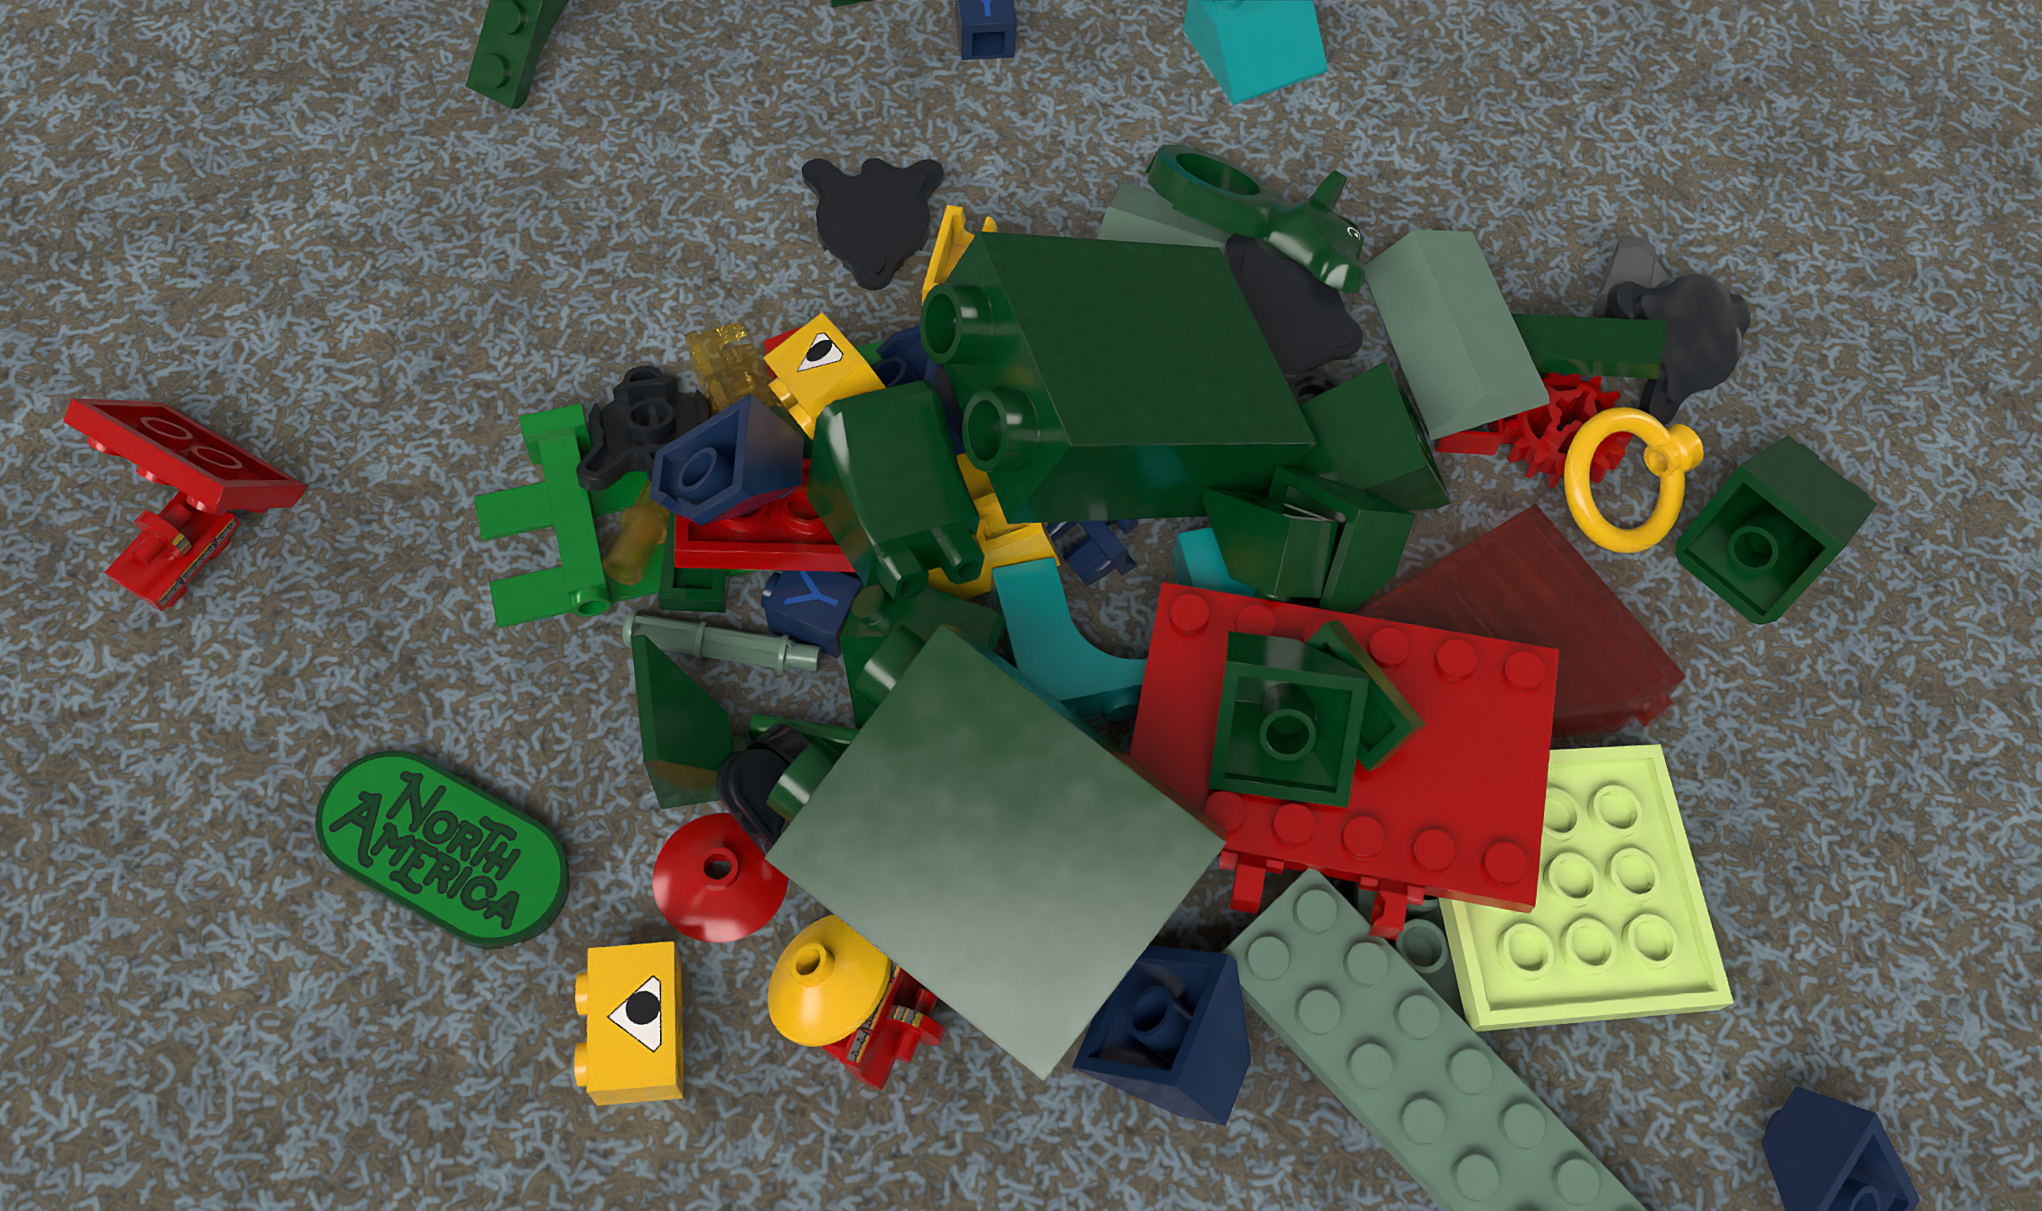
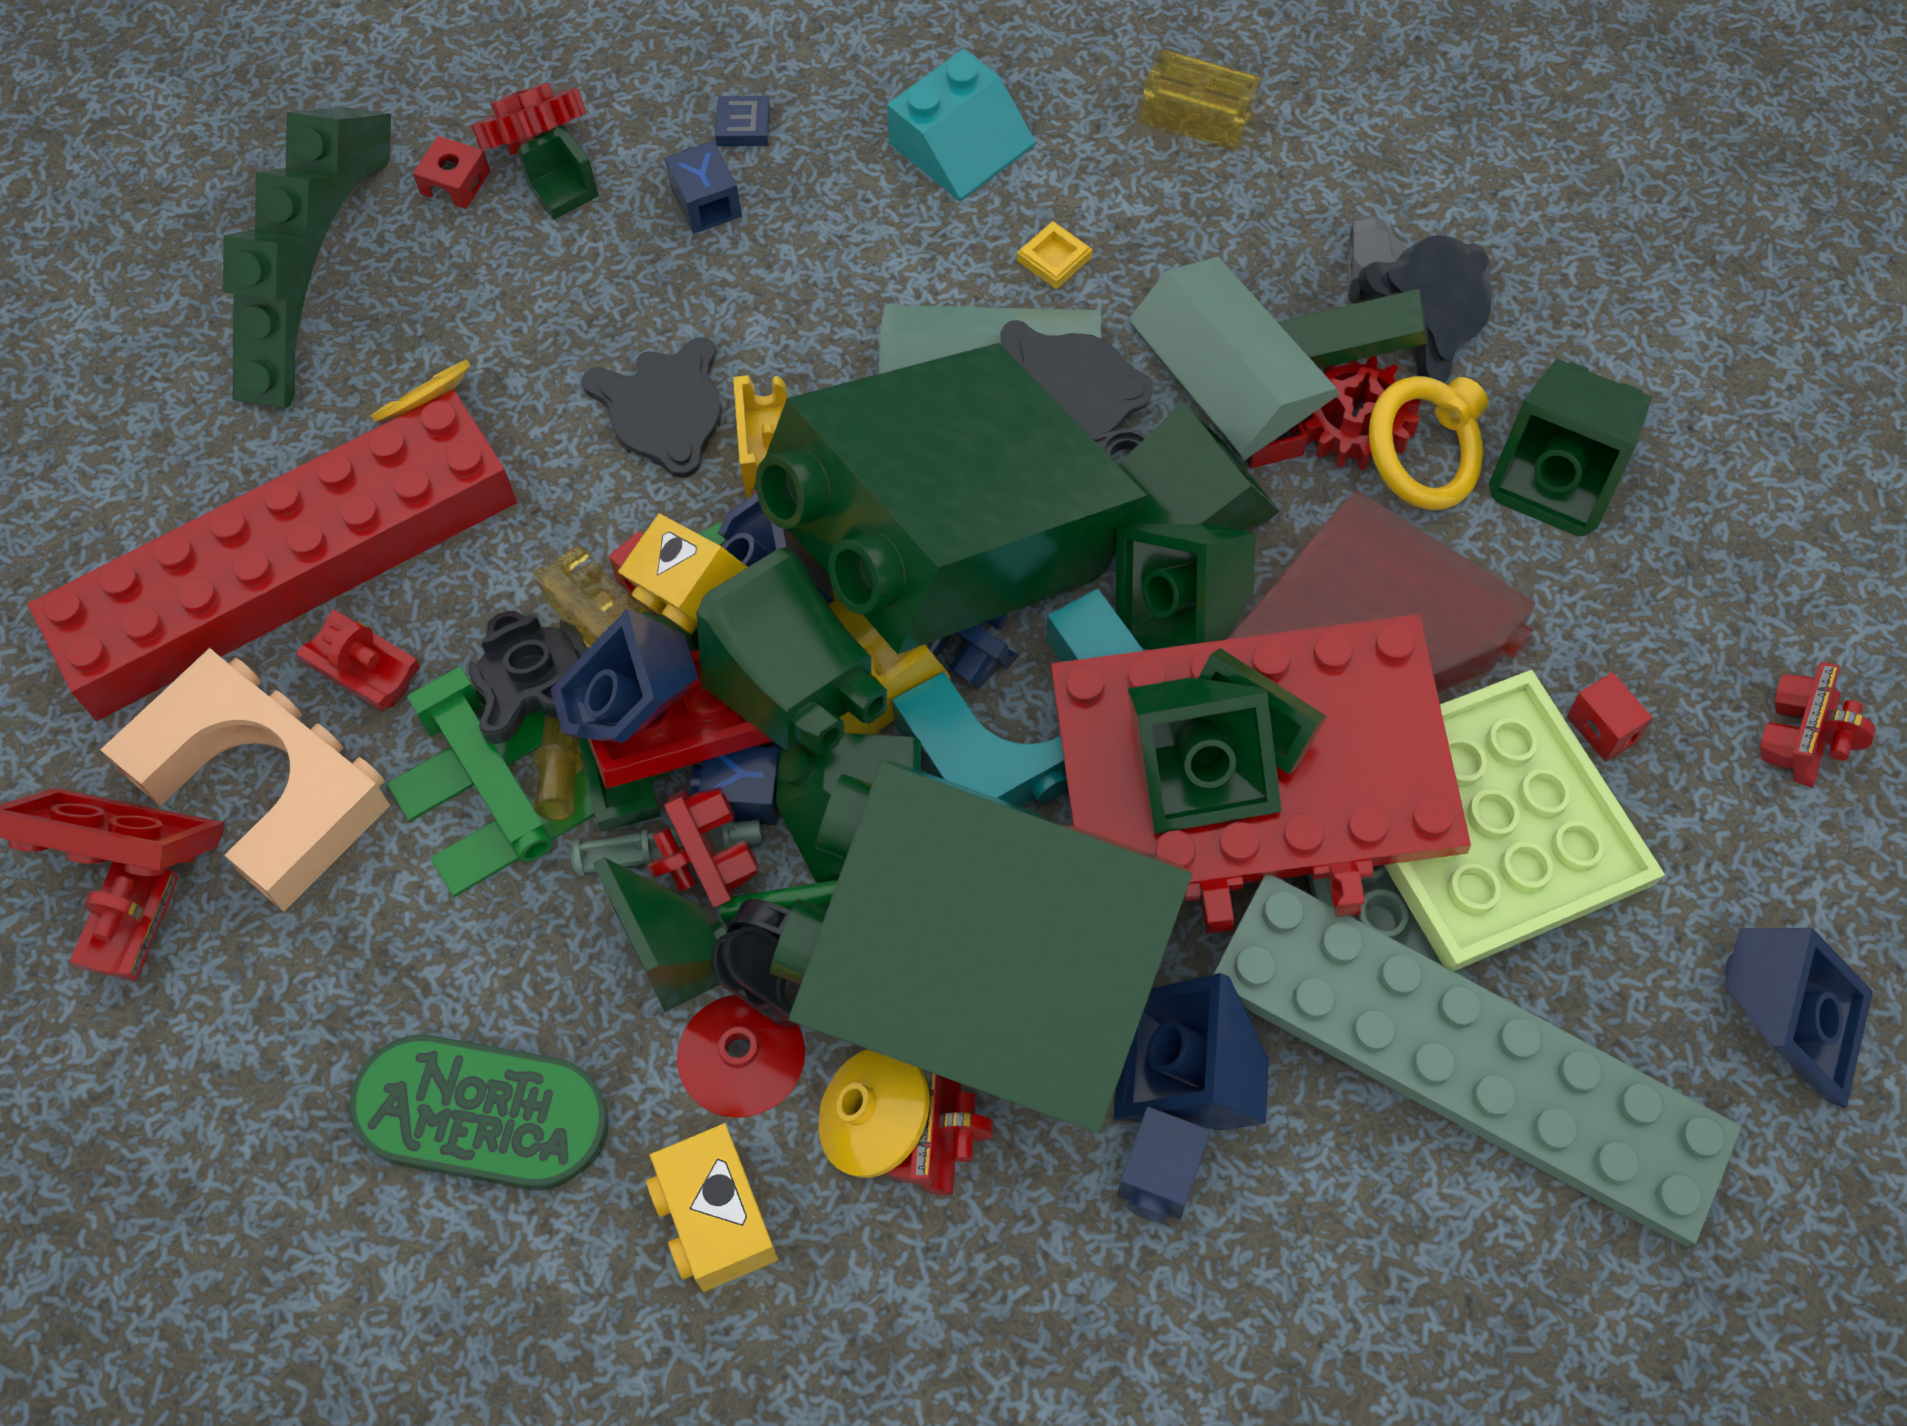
camera: 10 degrees left, 0 degrees up
(407, 490) = (220, 708): none -> light nougat arch
(443, 243) = (271, 554): none -> red brick
(489, 370) = (360, 661): none -> red hips
(645, 140) = (438, 385): none -> yellow dish
(757, 683) = (718, 870): none -> red hips
(1103, 1134) = (1162, 1166): none -> dark blue brick
(1240, 203) = (996, 293): dark green animal -> none
(1270, 543) = (1135, 598): dark green slope -> none
(1302, 177) = (1054, 254): none -> yellow tile
(1505, 74) = (1199, 99): none -> clear yellow hinge
(1733, 818) = (1613, 712): none -> red piece
(1954, 874) = (1817, 703): none -> red hips

